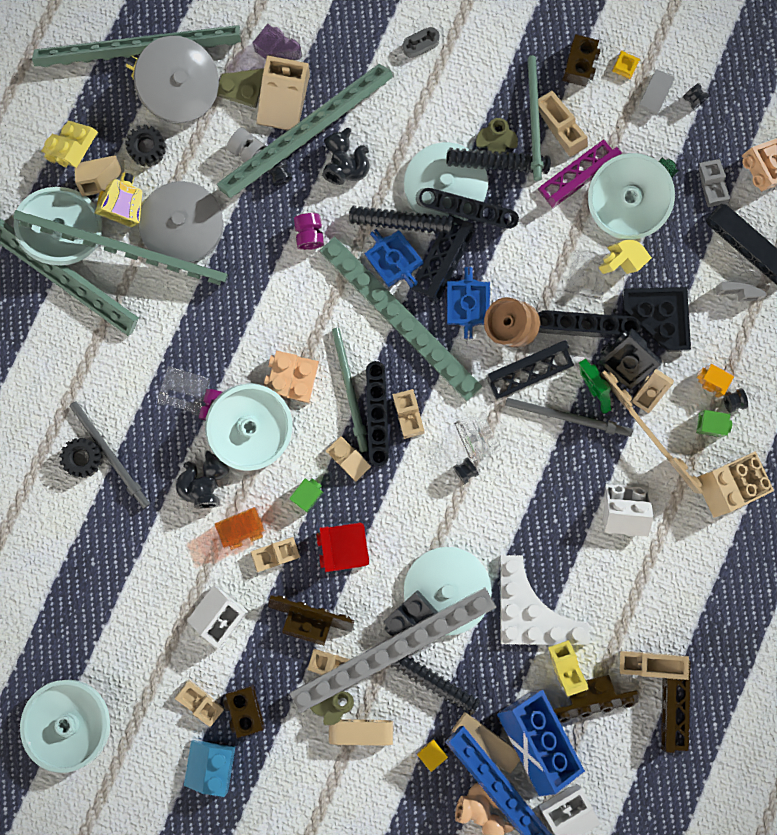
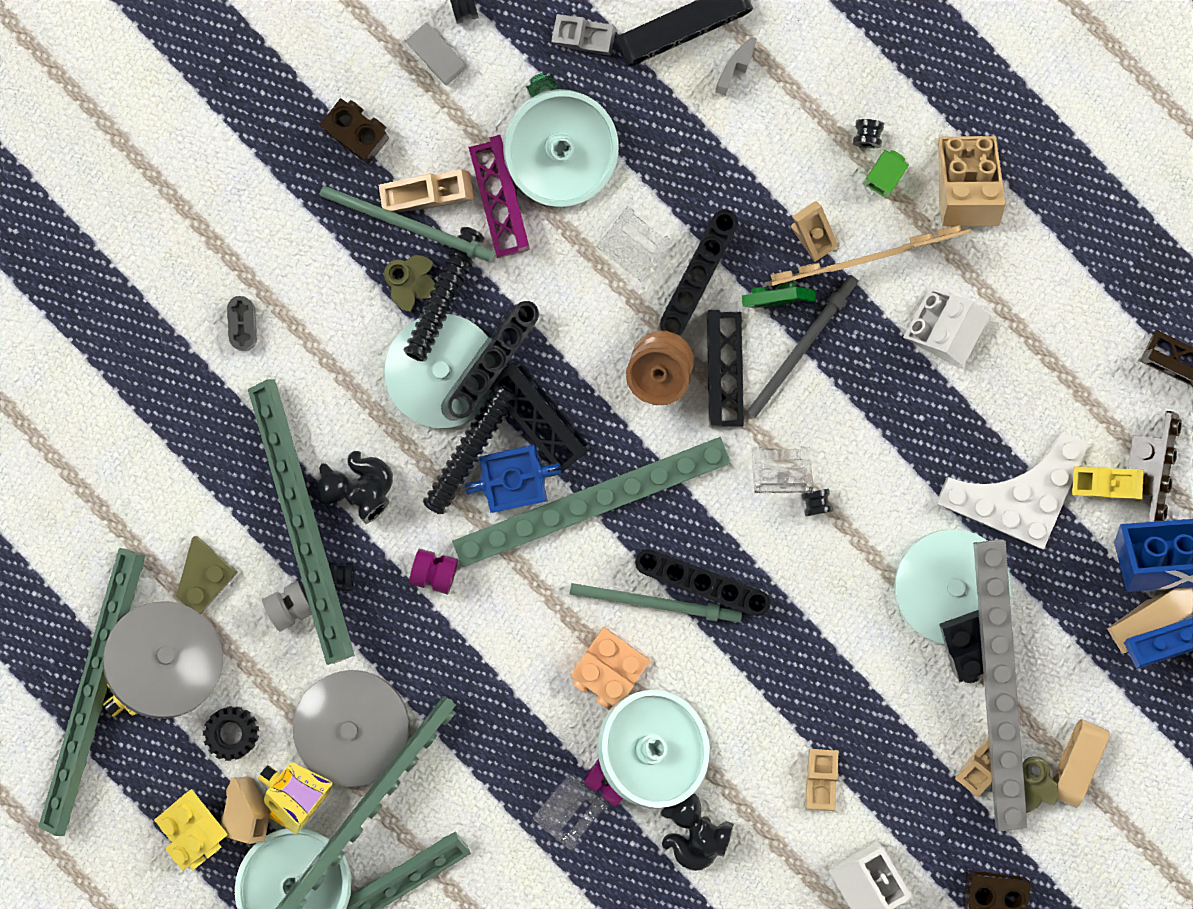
camera: 65 degrees left, 5 degrees up
(241, 528) = (773, 809): clear orange brick -> none
(274, 43) = (170, 513): clear purple slope -> none
(282, 92) = (238, 530): tan slope -> none
(307, 494) = (765, 710): bright green brick -> none
(308, 622) = (922, 773): dark brown bracket -> none
(343, 547) = (848, 692): red bracket -> none
(348, 458) = (740, 640): tan slope -> none
(408, 414) = (716, 542): tan slope -> none
(432, 755) = (1140, 688): yellow tile -> none
(437, 684) = (1062, 645): black piece -> none
(467, 302) = (607, 409): blue plate -> none
(626, 65) = (383, 75): yellow tile -> none
(627, 254) = (633, 184): light yellow brick -> none
(629, 358) = (764, 242): black plate -> none
(654, 665) = (1146, 378): tan slope -> none
(661, 314) = (723, 176): black plate -> none
(714, 379) = (832, 147): light orange brick -> none

